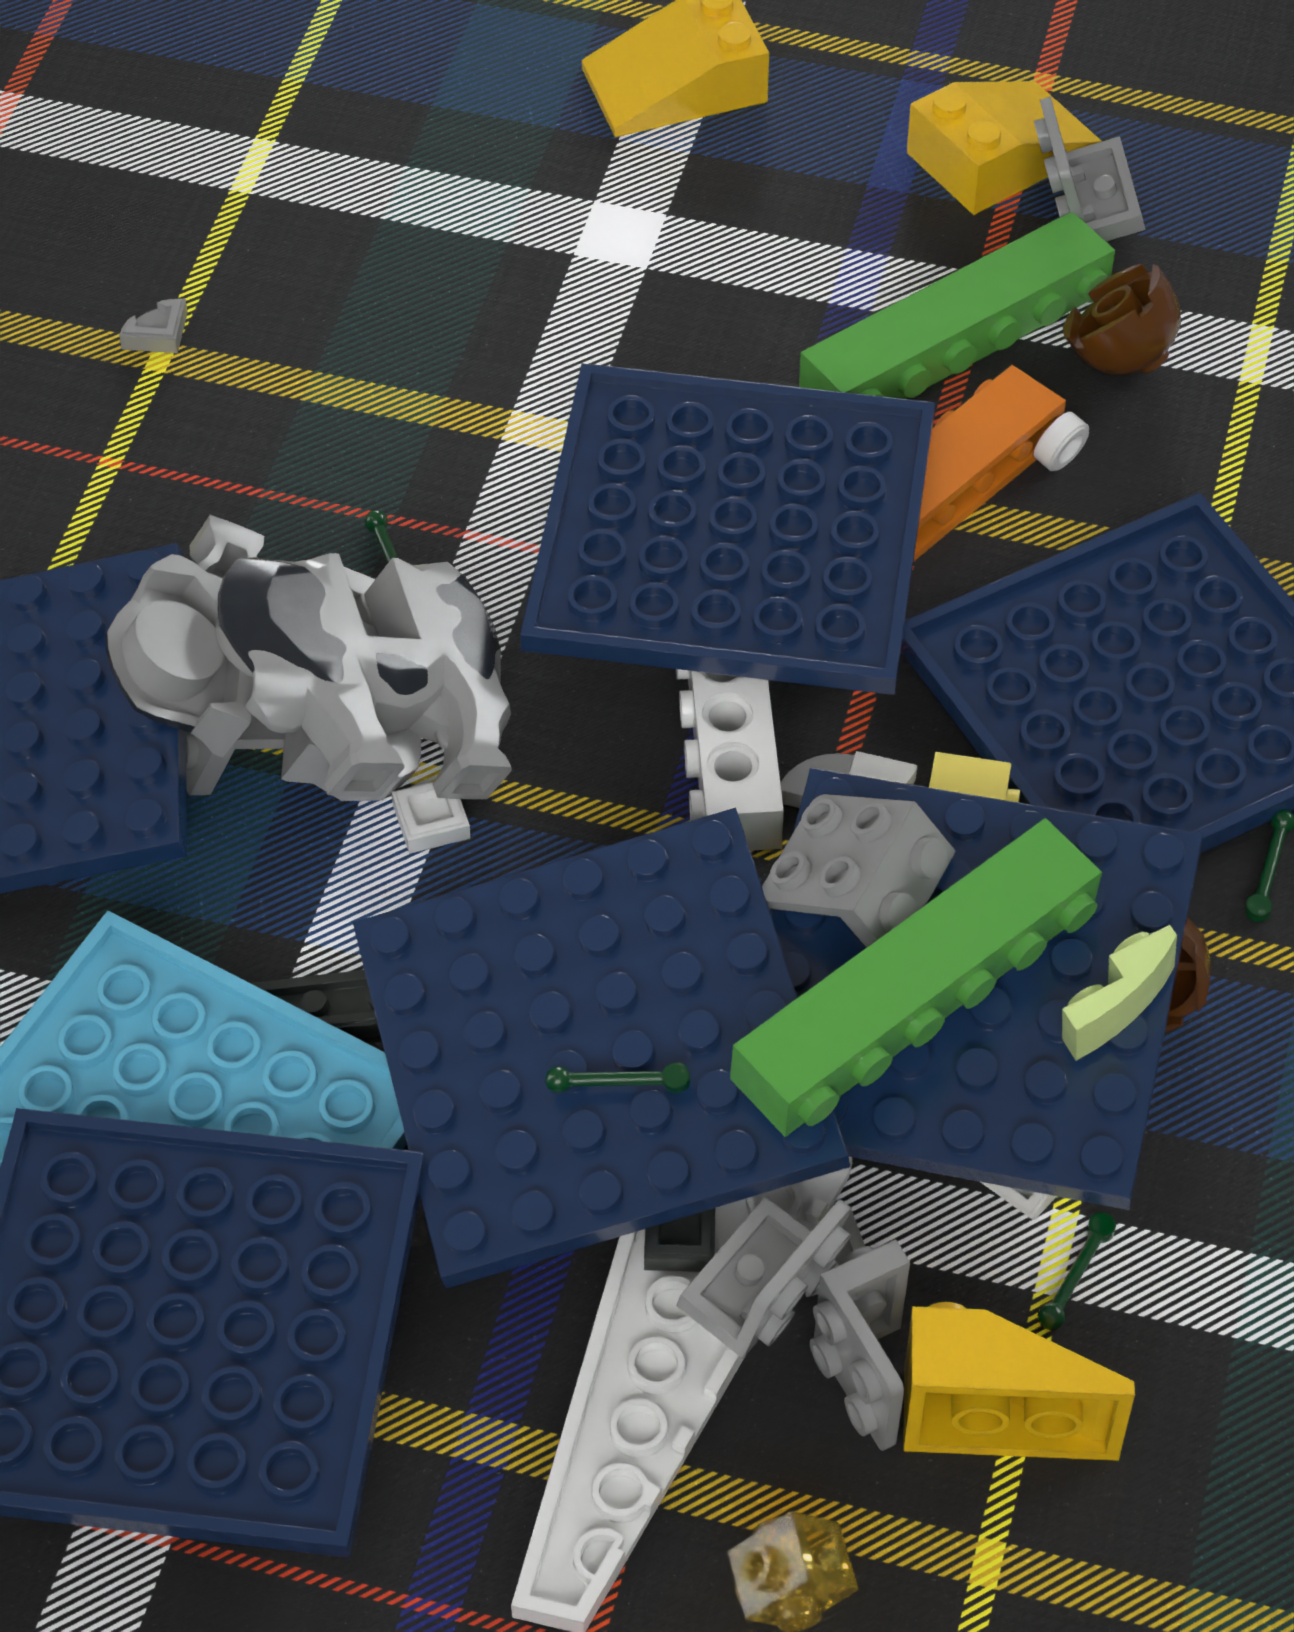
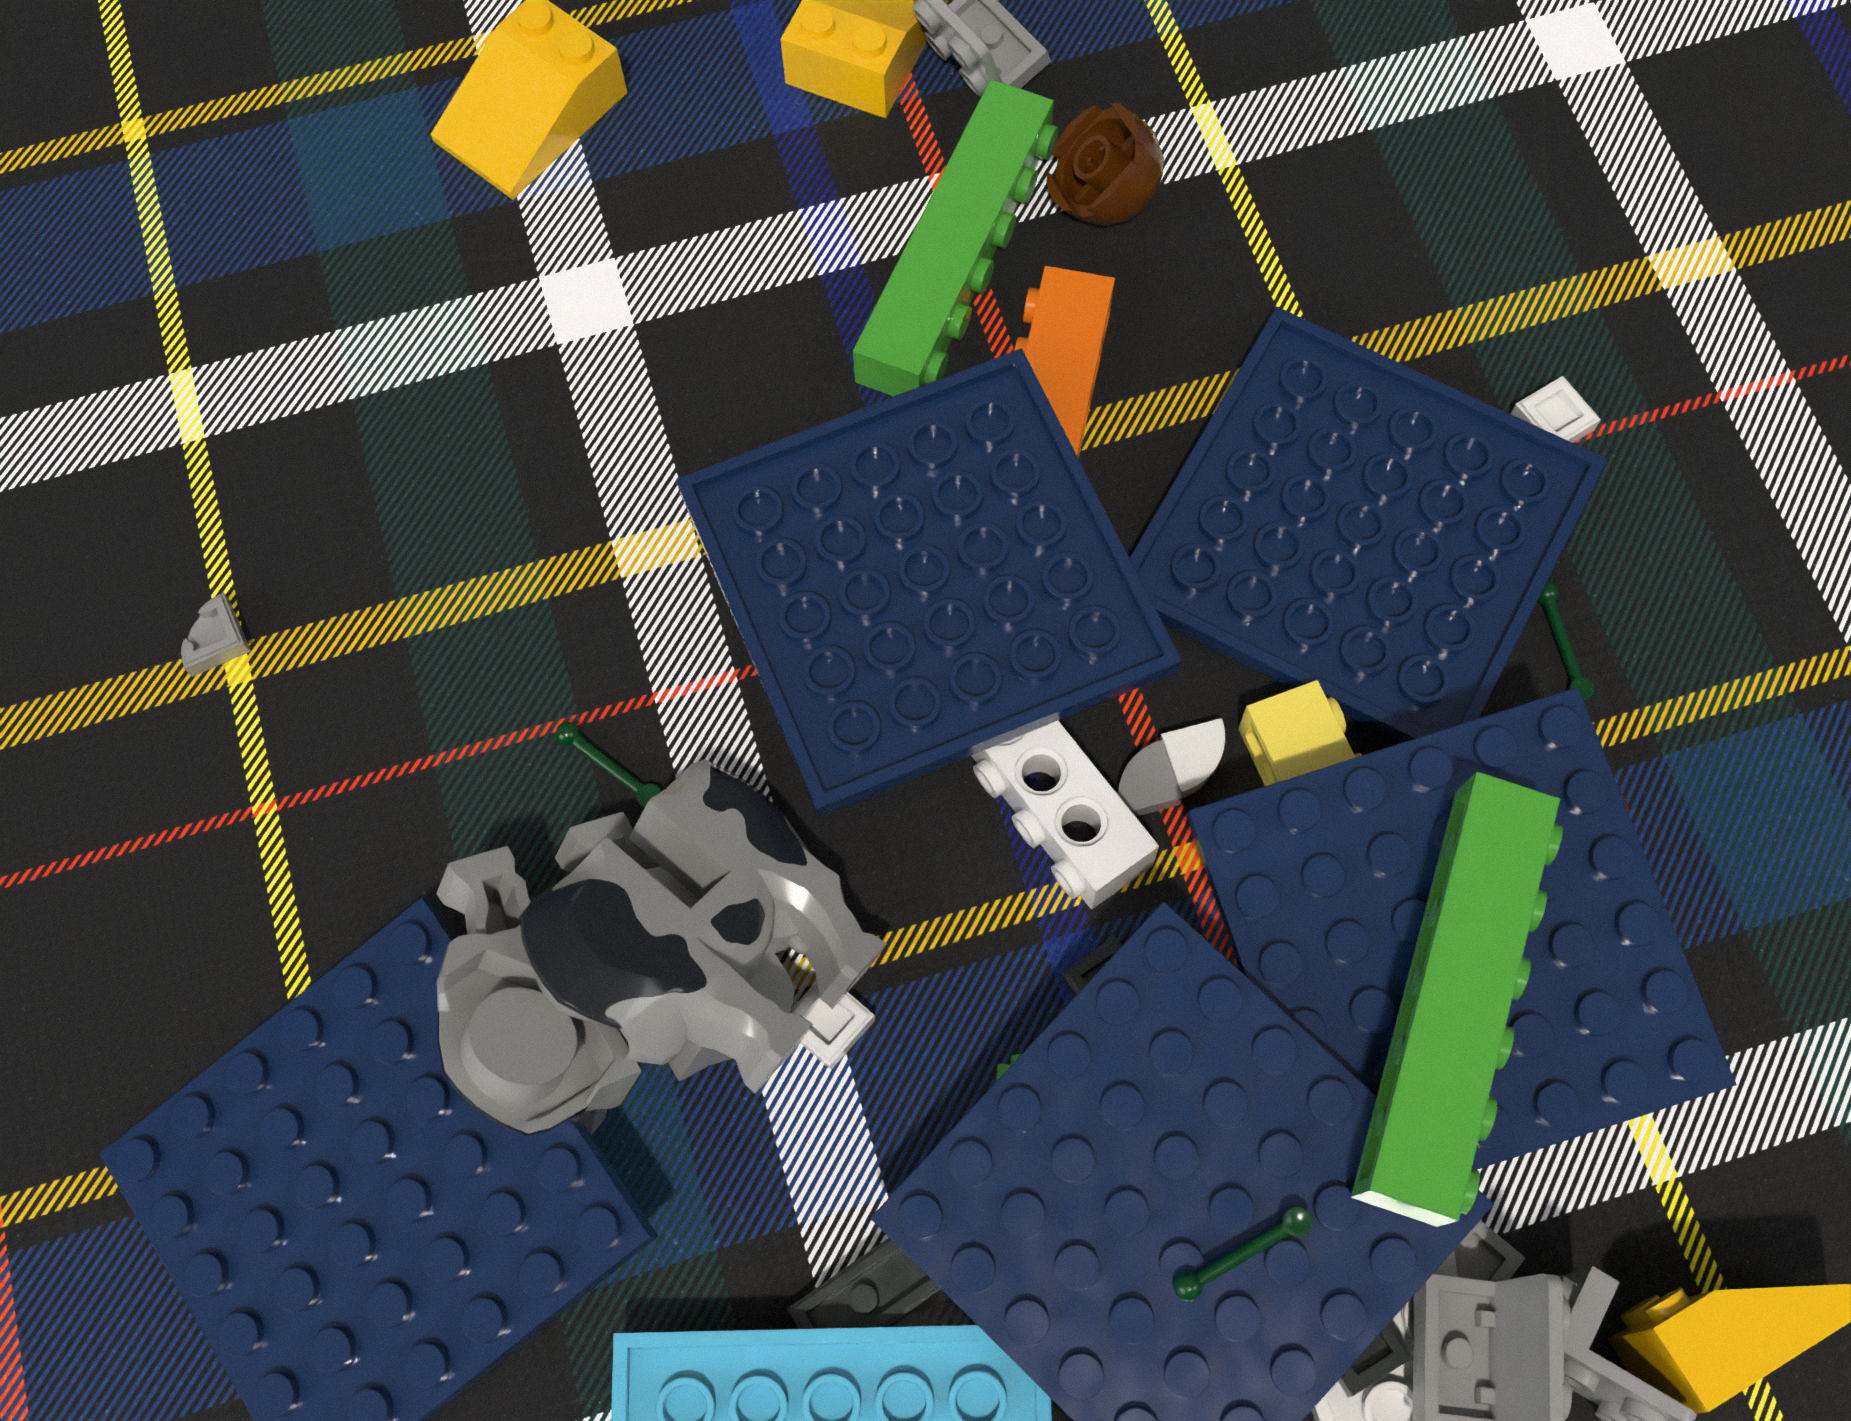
camera: 30 degrees left, 15 degrees up
(859, 862) = (1315, 904): light grey bracket -> none
(1061, 441) = (1125, 316): white tile -> none
(1100, 1230) = (1688, 1203): dark green hinge -> none
(1134, 979) = (1637, 881): yellowish green slope -> none

